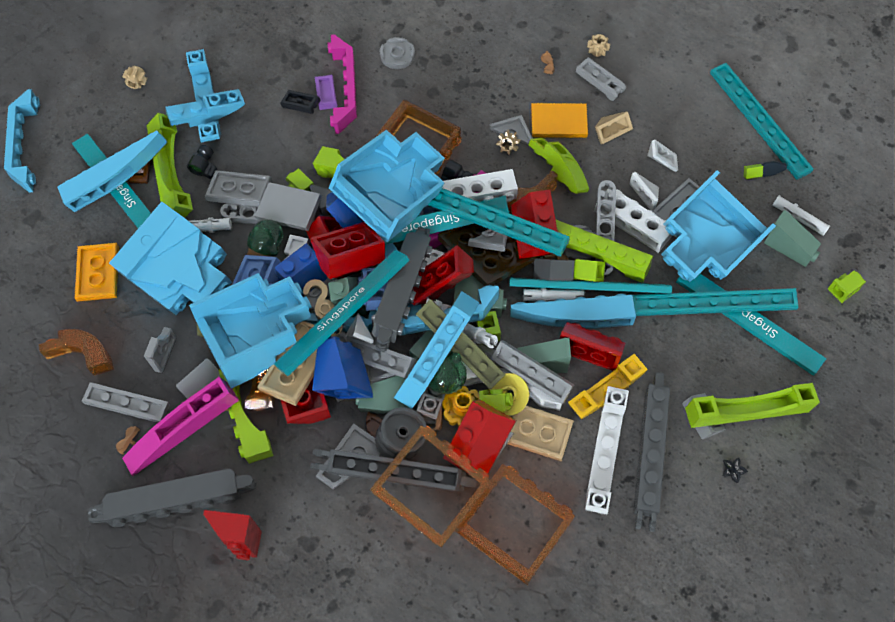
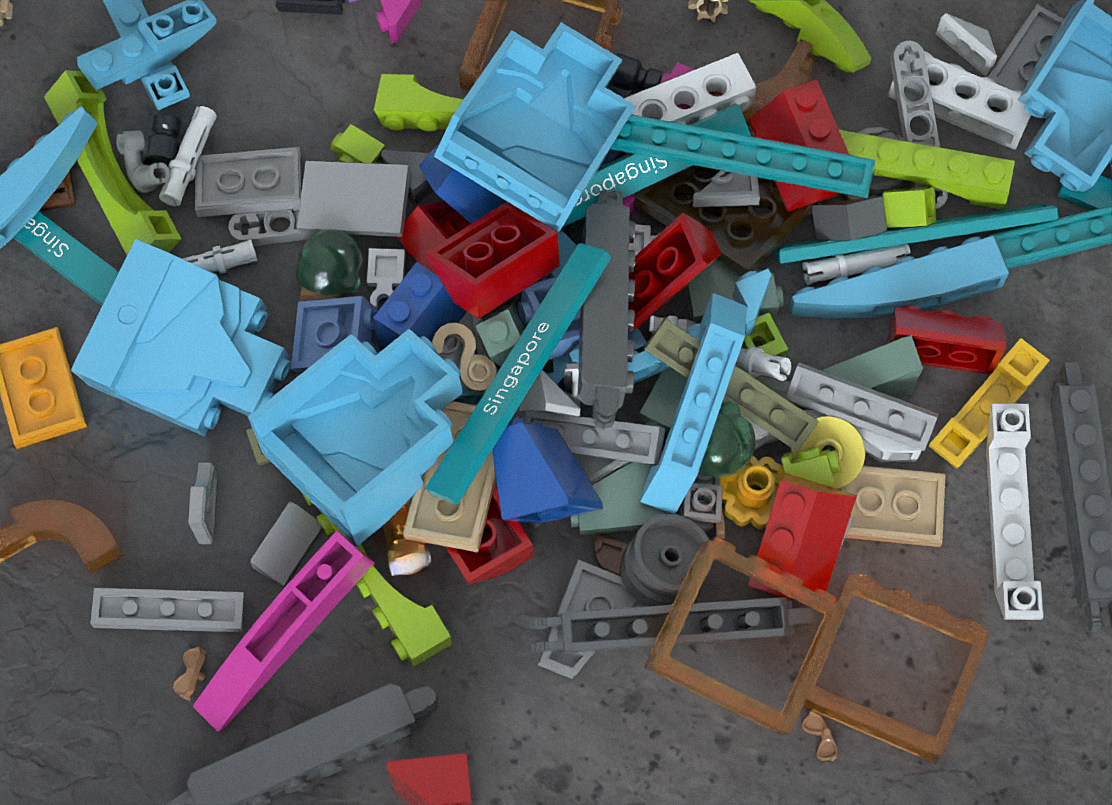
camera: 15 degrees left, 5 degrees up
(185, 174) = (143, 177): none -> light grey piece
(205, 174) = (183, 167): none -> white pin
(463, 546) = (815, 725): none -> medium nougat piece

